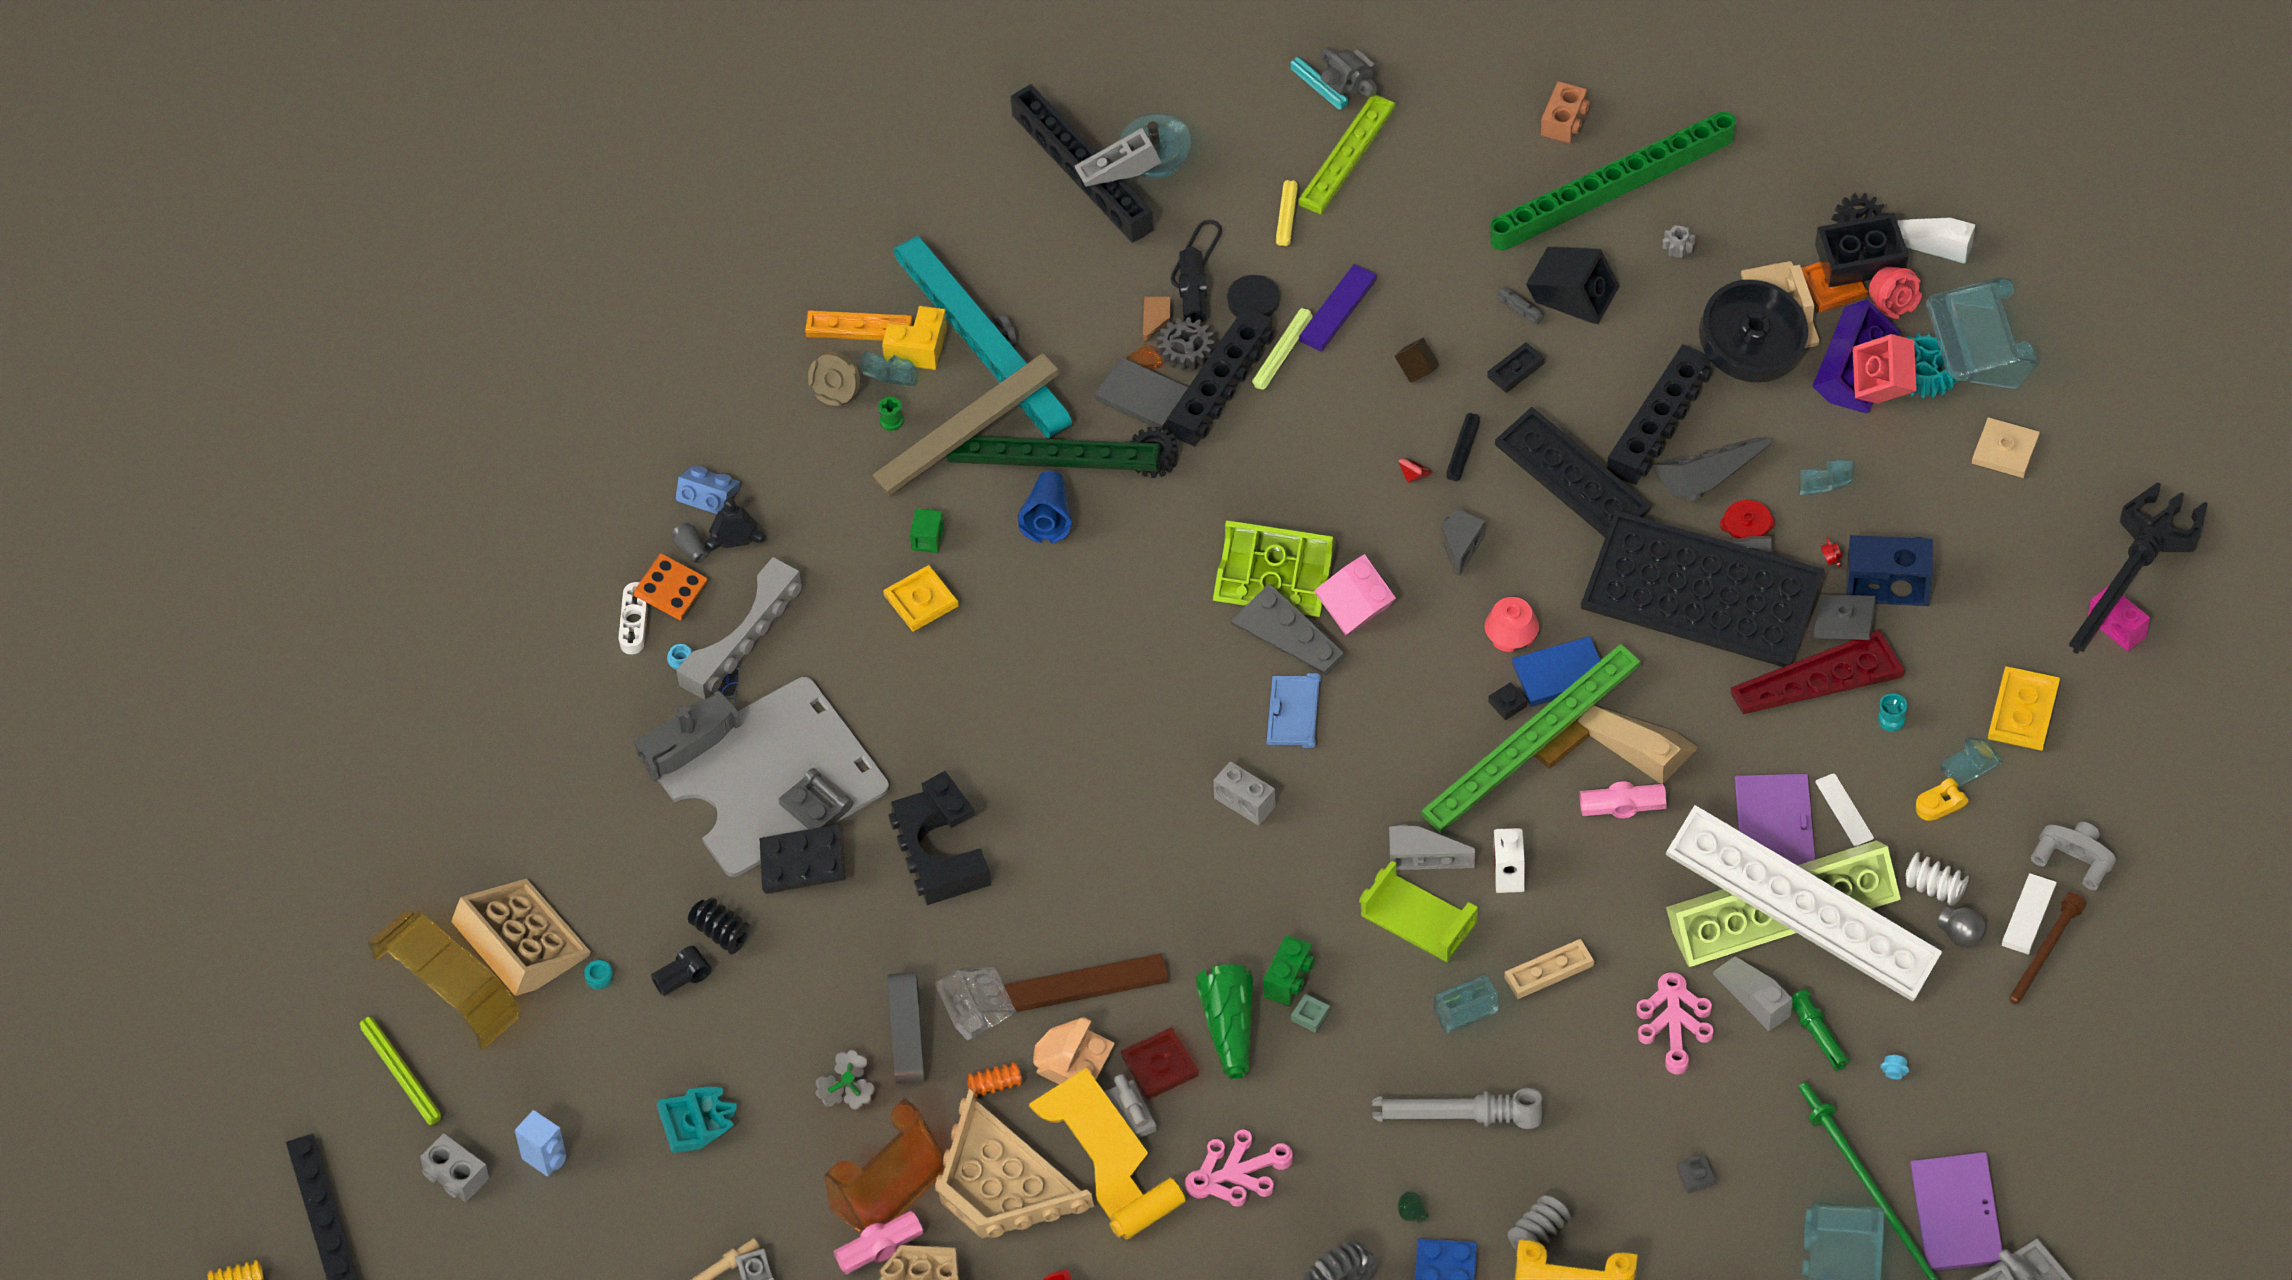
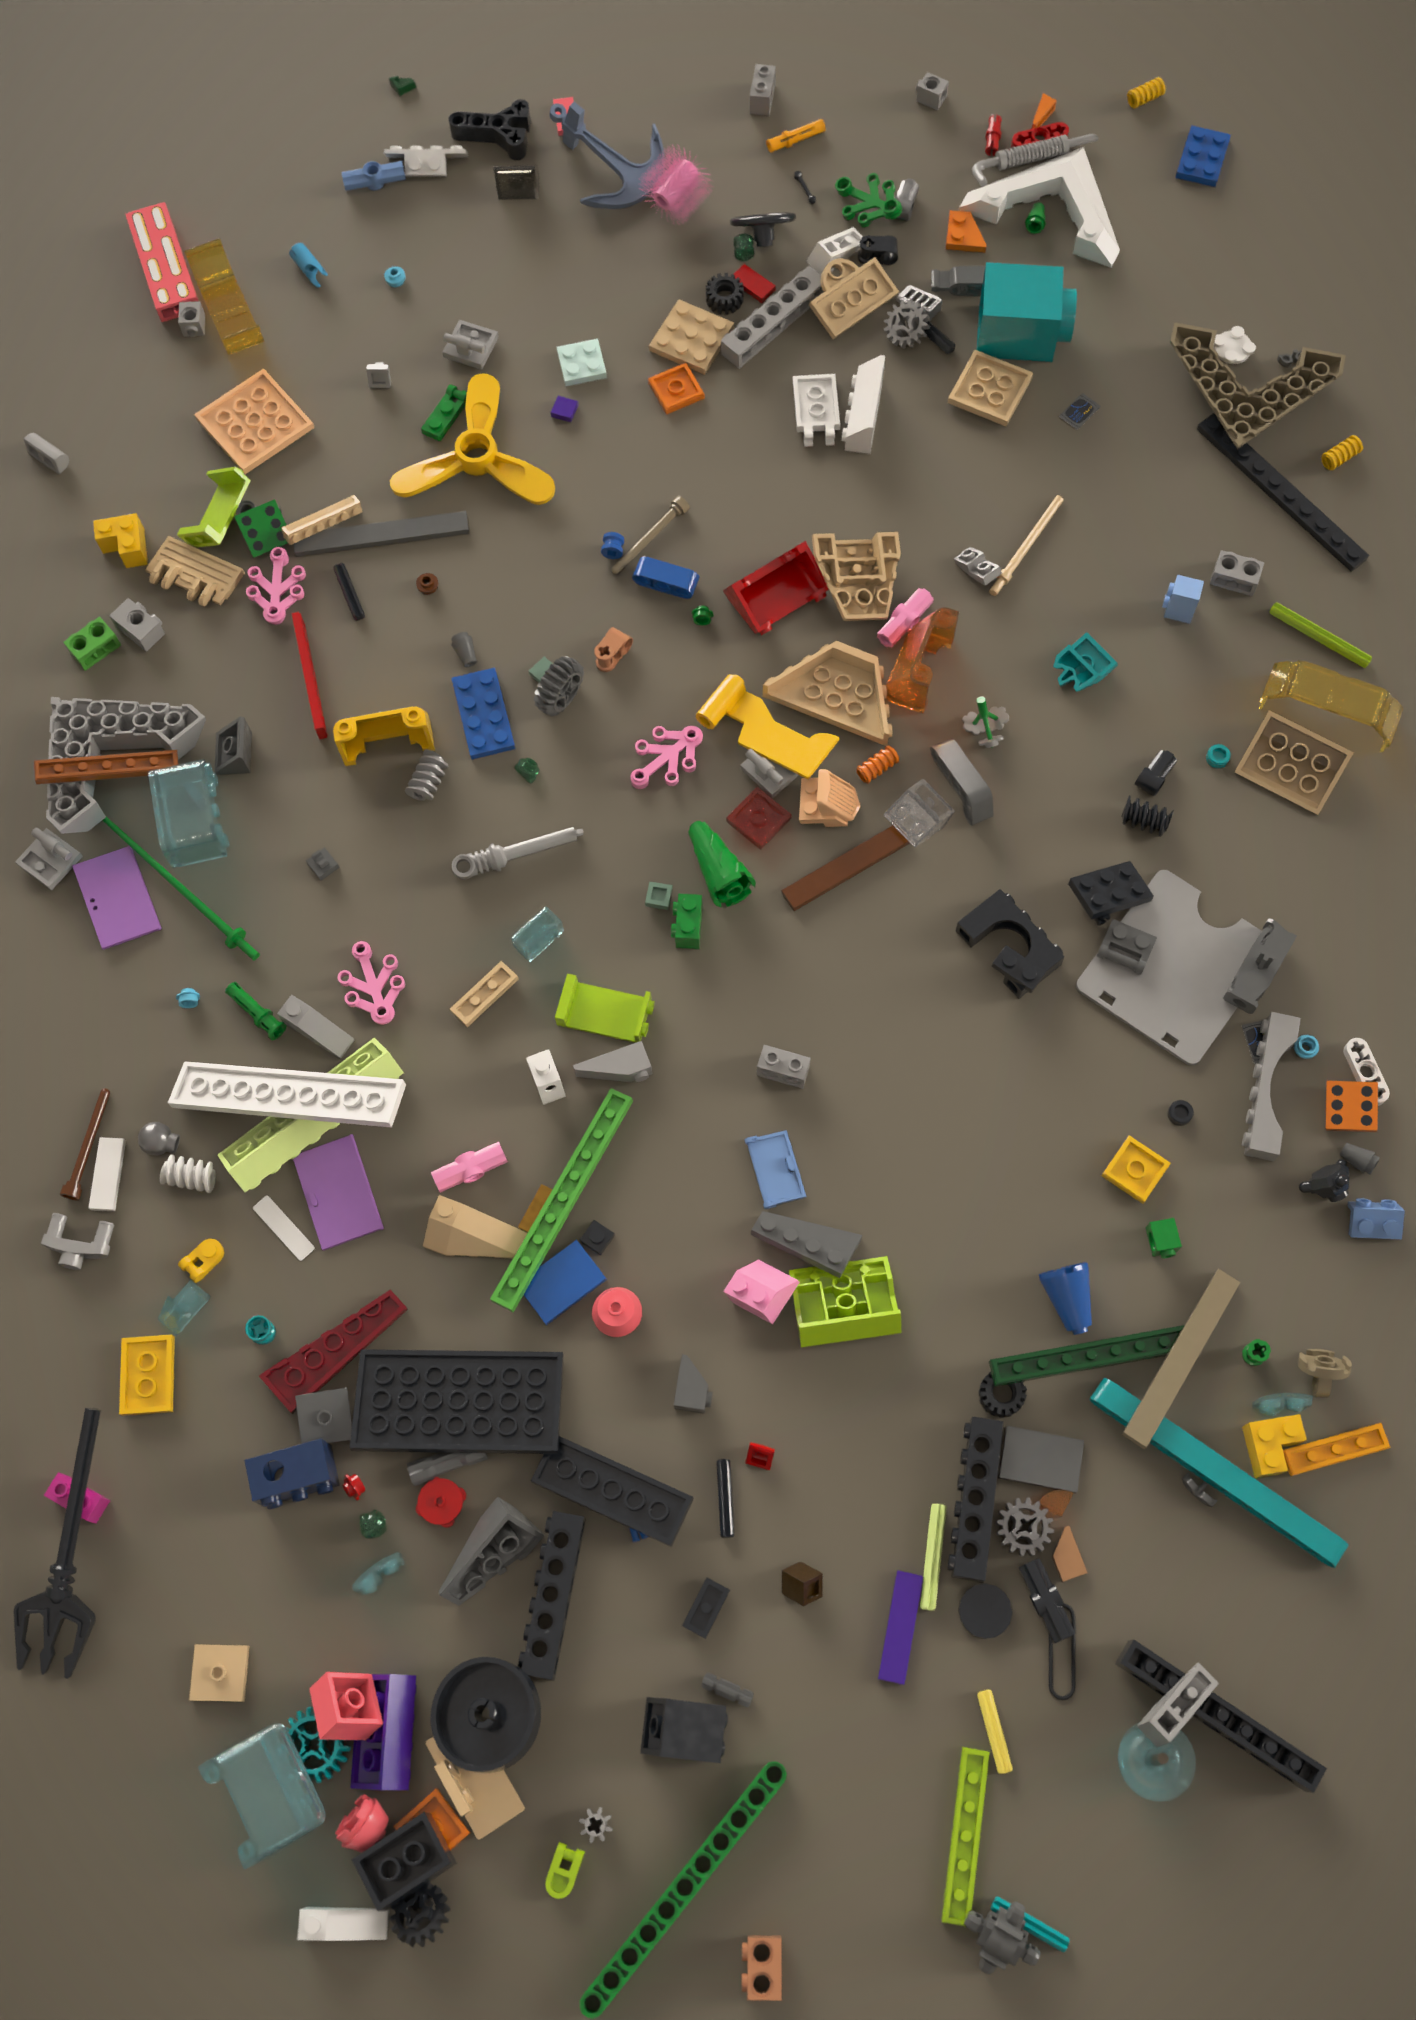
camera: 160 degrees right, 15 degrees up
(845, 638) = (1180, 1113): none -> black tile
(1723, 213) = (559, 1880): none -> lime plate
(1821, 516) = (372, 1524): none -> clear green piece

